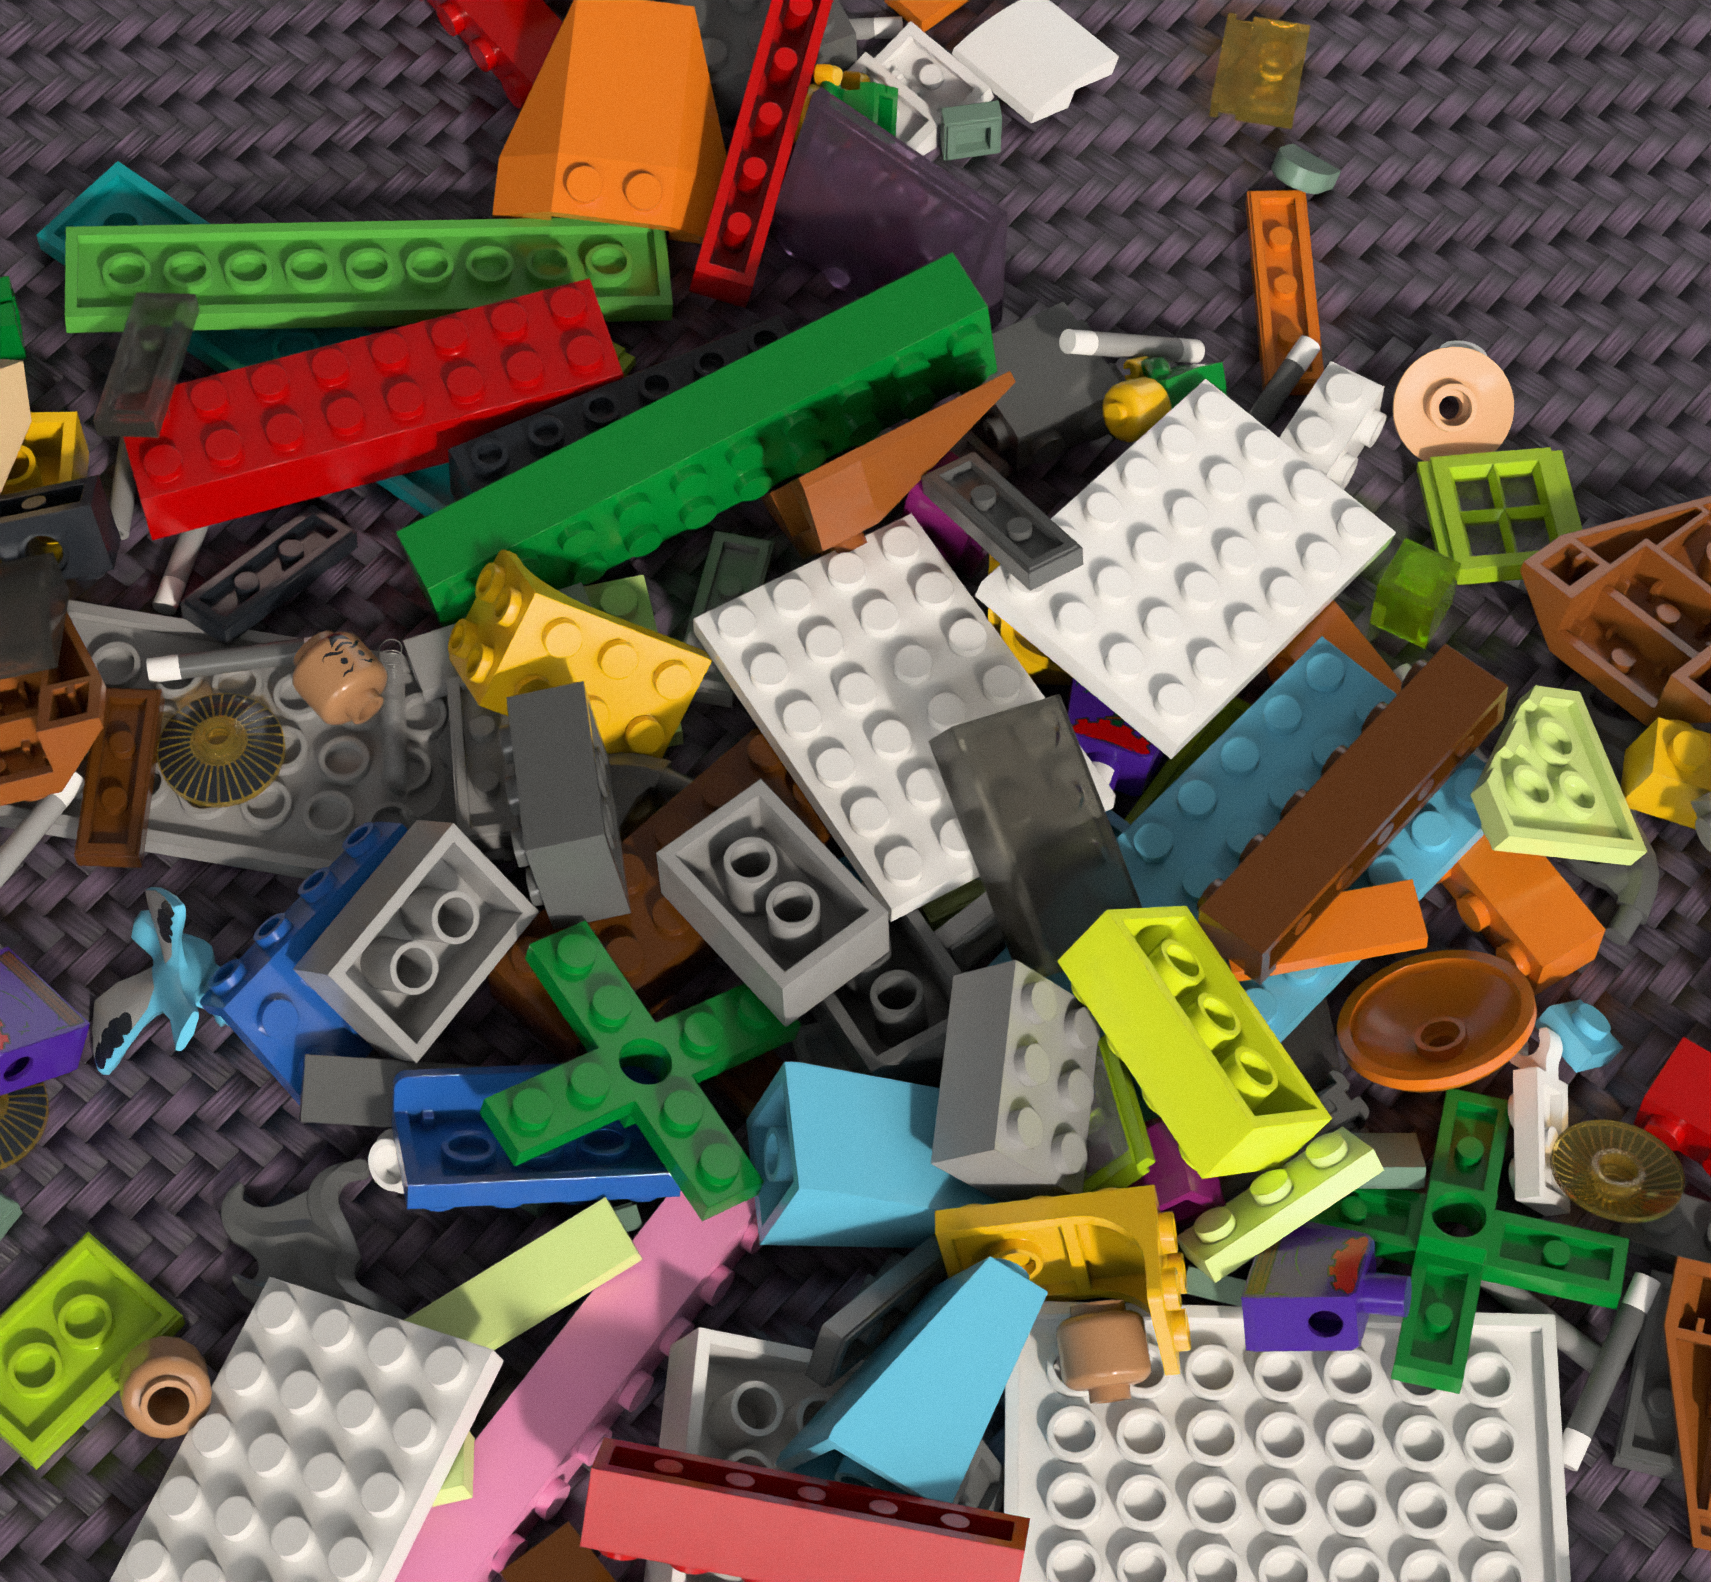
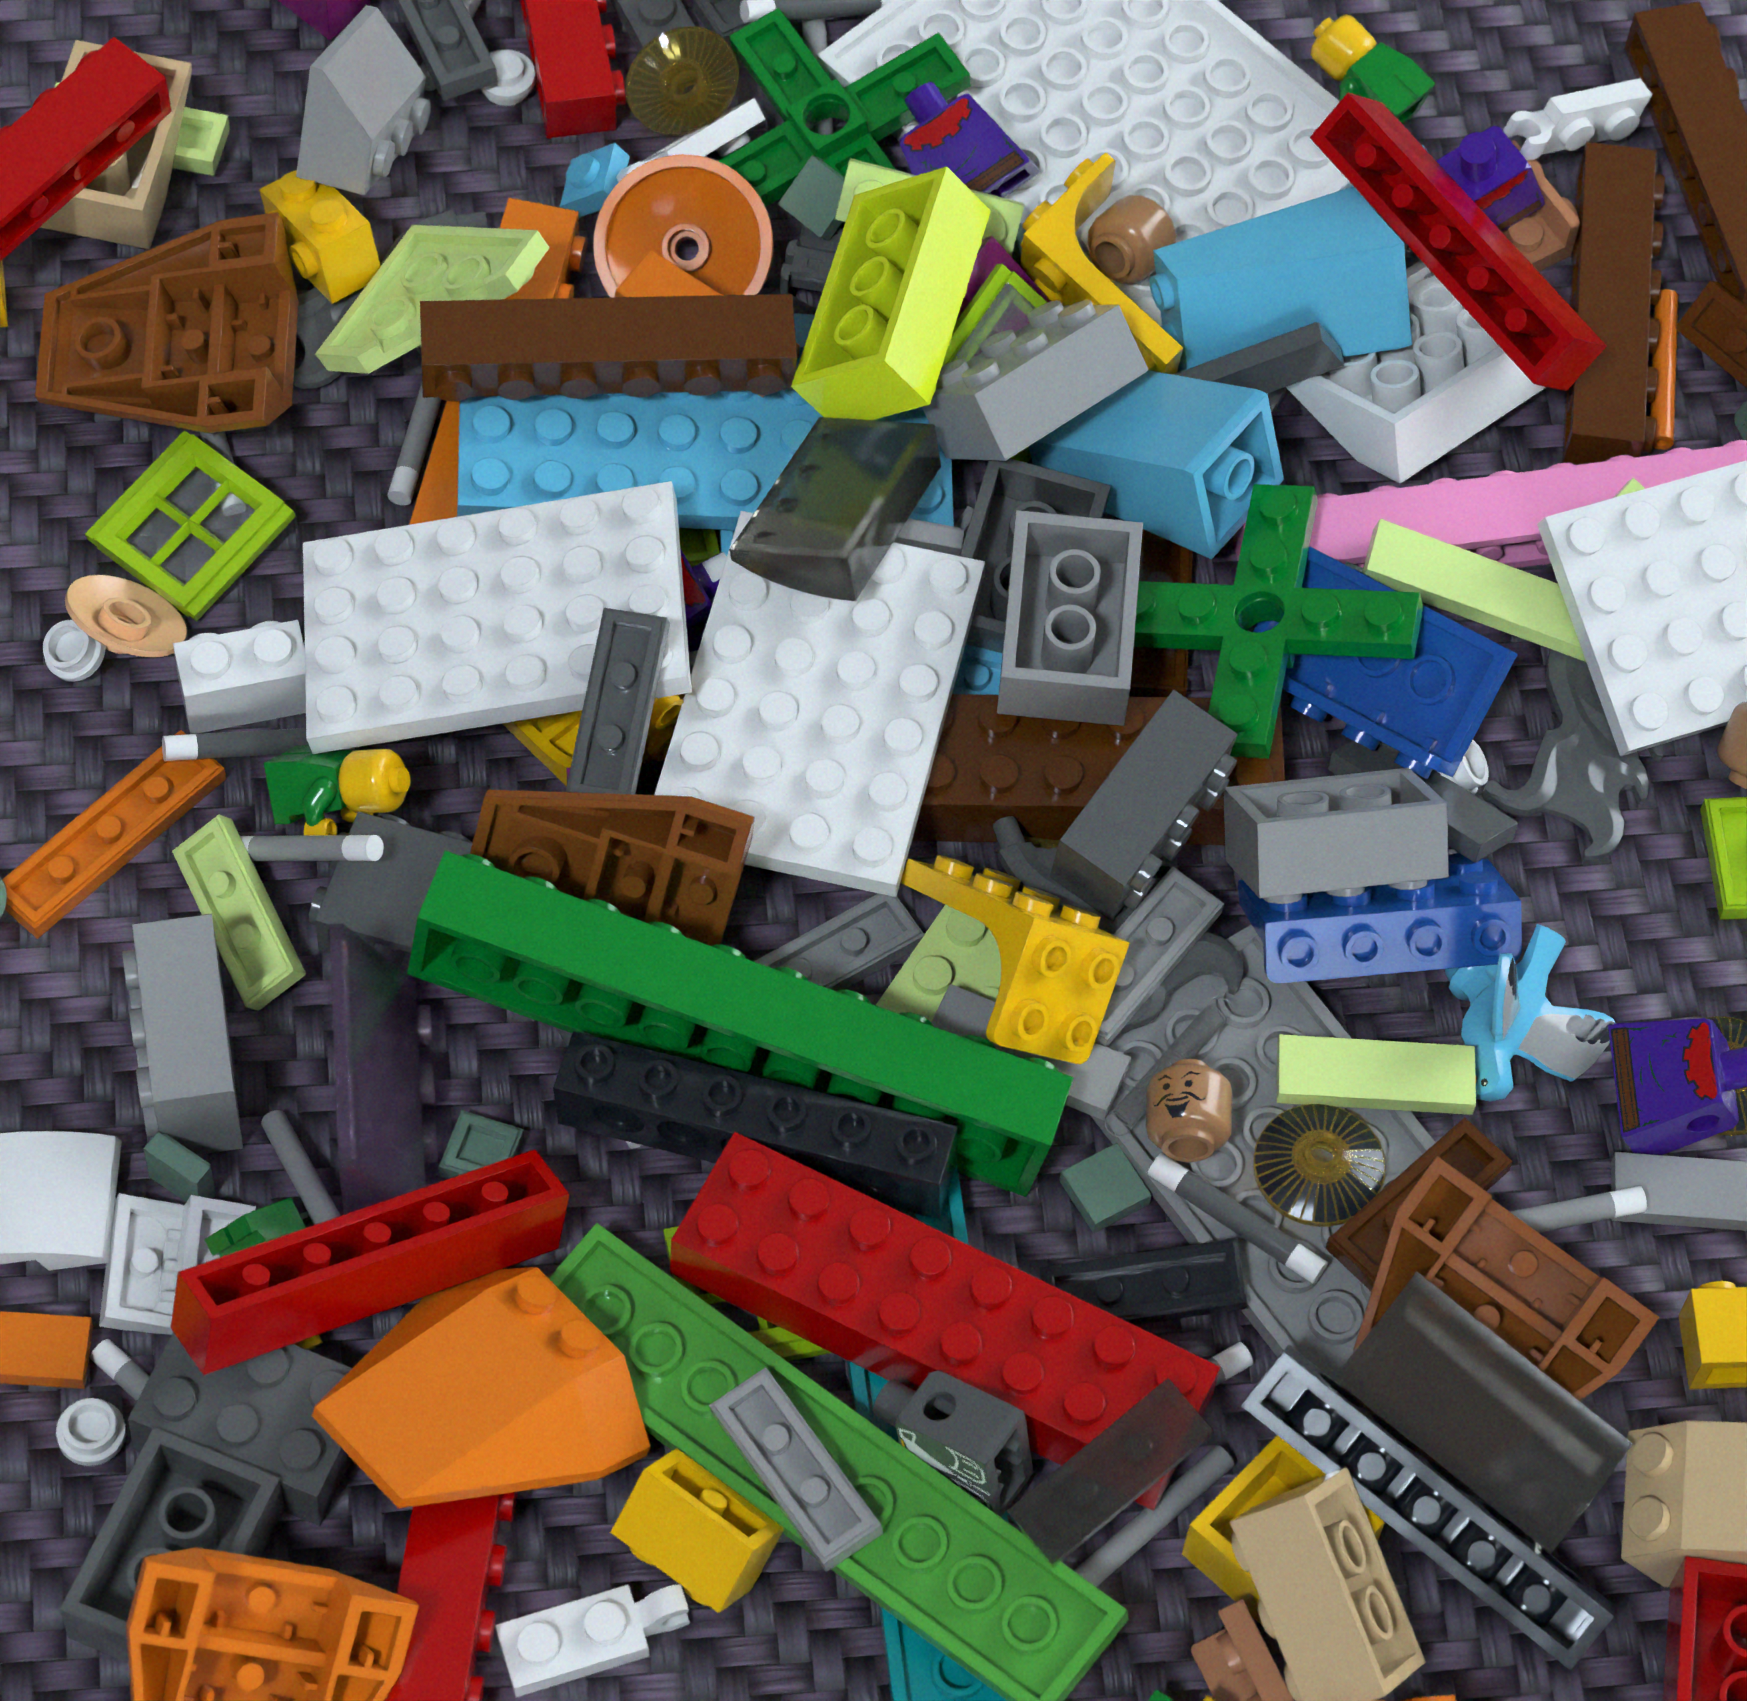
camera: 140 degrees left, 0 degrees up
(238, 836) = (1376, 1074): none -> yellowish green tile
(279, 321) = (962, 1435): none -> dark grey torso
(372, 622) = (1105, 1188): none -> sand green tile
(373, 246) = (796, 1469): none -> light grey tile
(408, 189) = (696, 1530): none -> yellow brick
(423, 110) = (586, 1636): none -> white plate
(803, 302) = (478, 1143): none -> sand green tile
(1057, 178) = (182, 1034): none -> light grey brick
(1136, 303) = (241, 911): none -> yellowish green tile
(1415, 593) = (328, 505): clear neon green brick -> none

